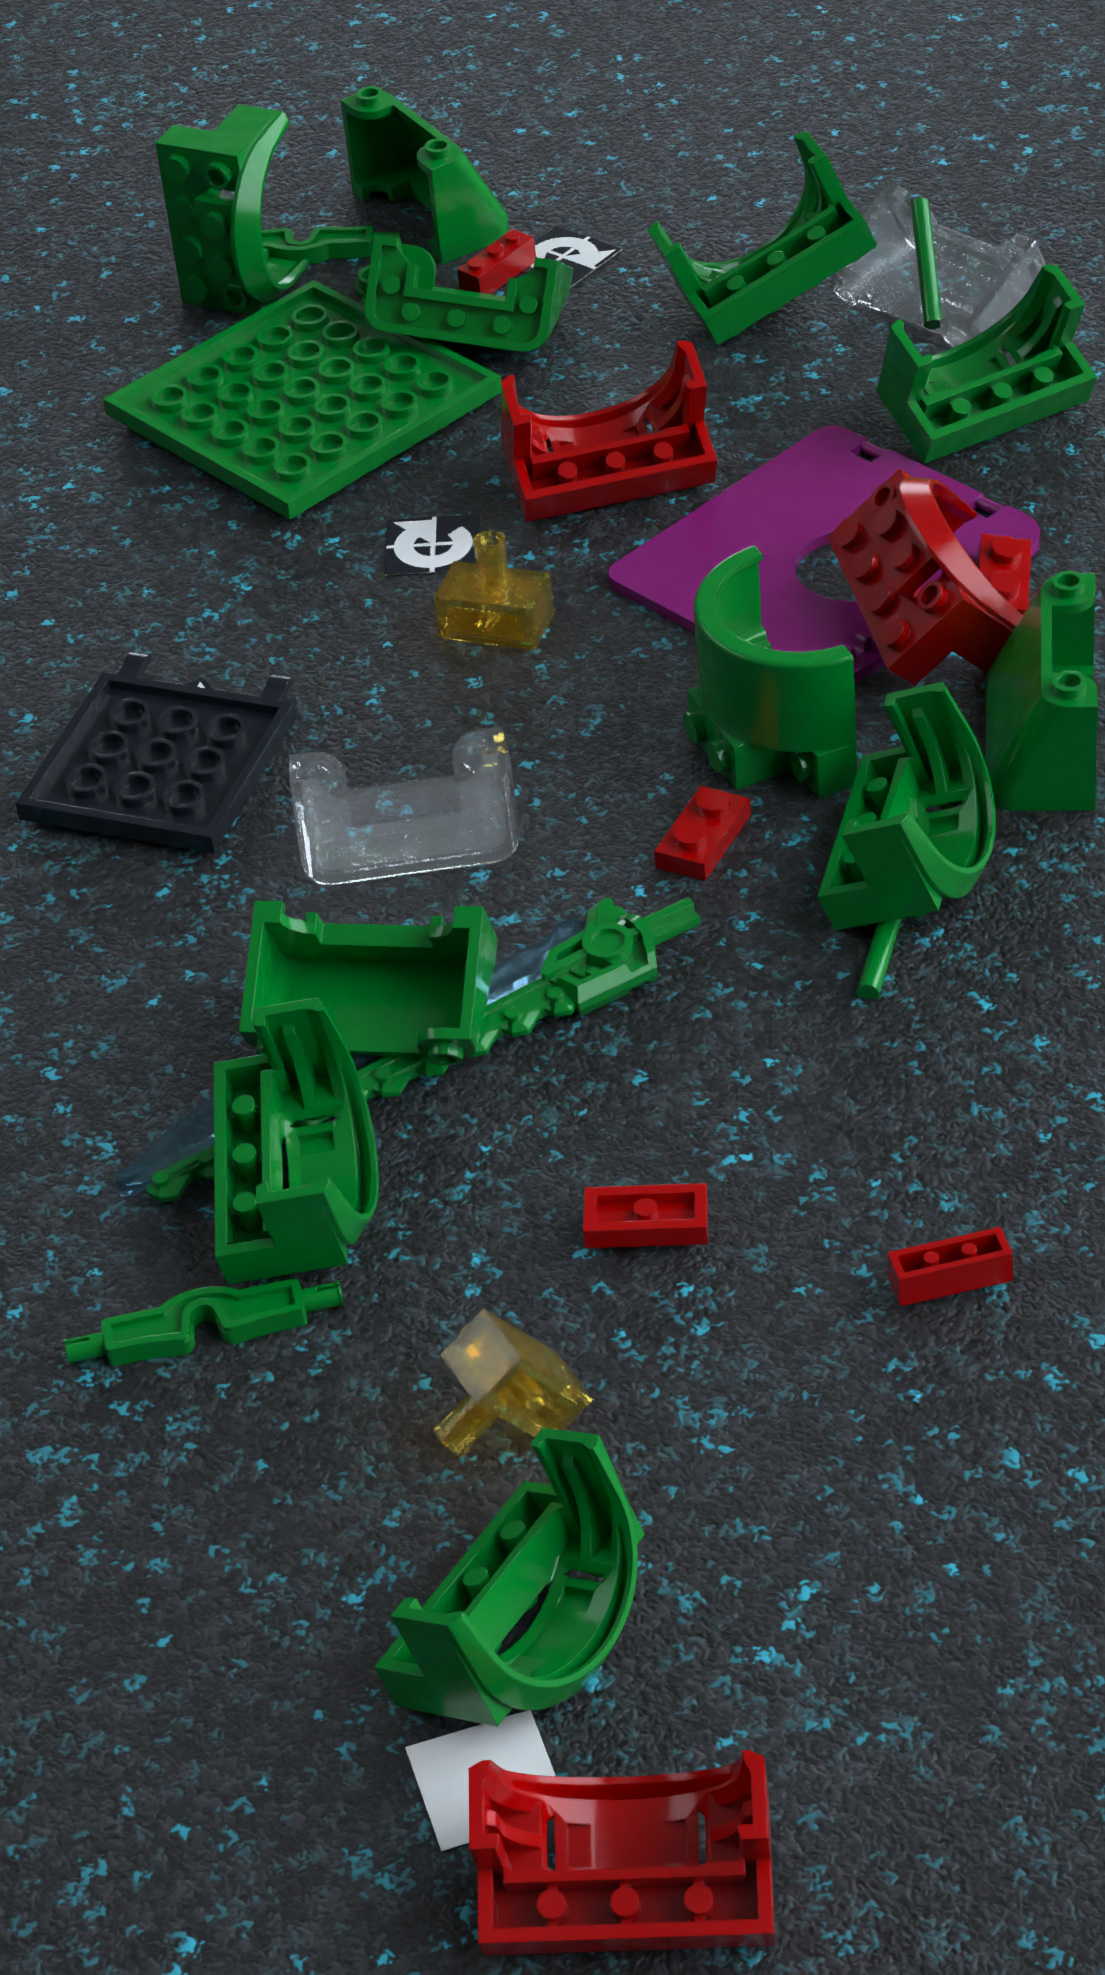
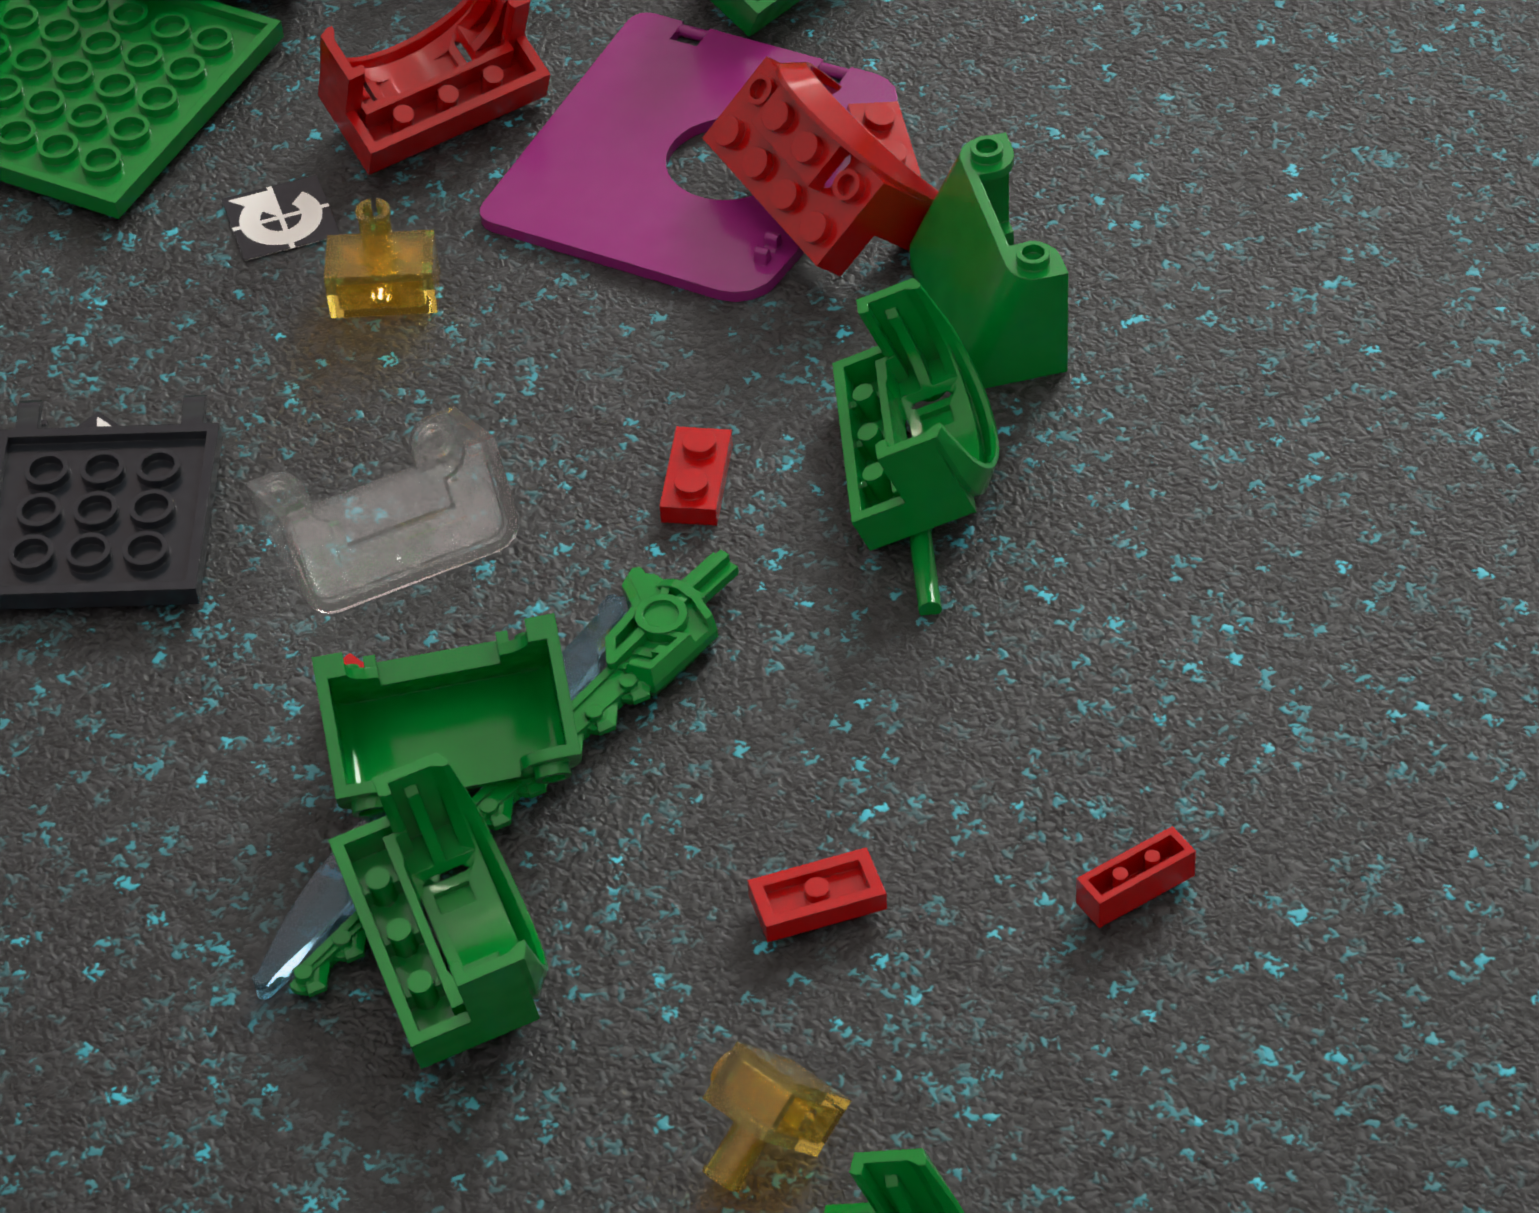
camera: 20 degrees left, 5 degrees up
(170, 1328) = (381, 1132): green piece -> none
(763, 706) = (714, 335): green piece -> none

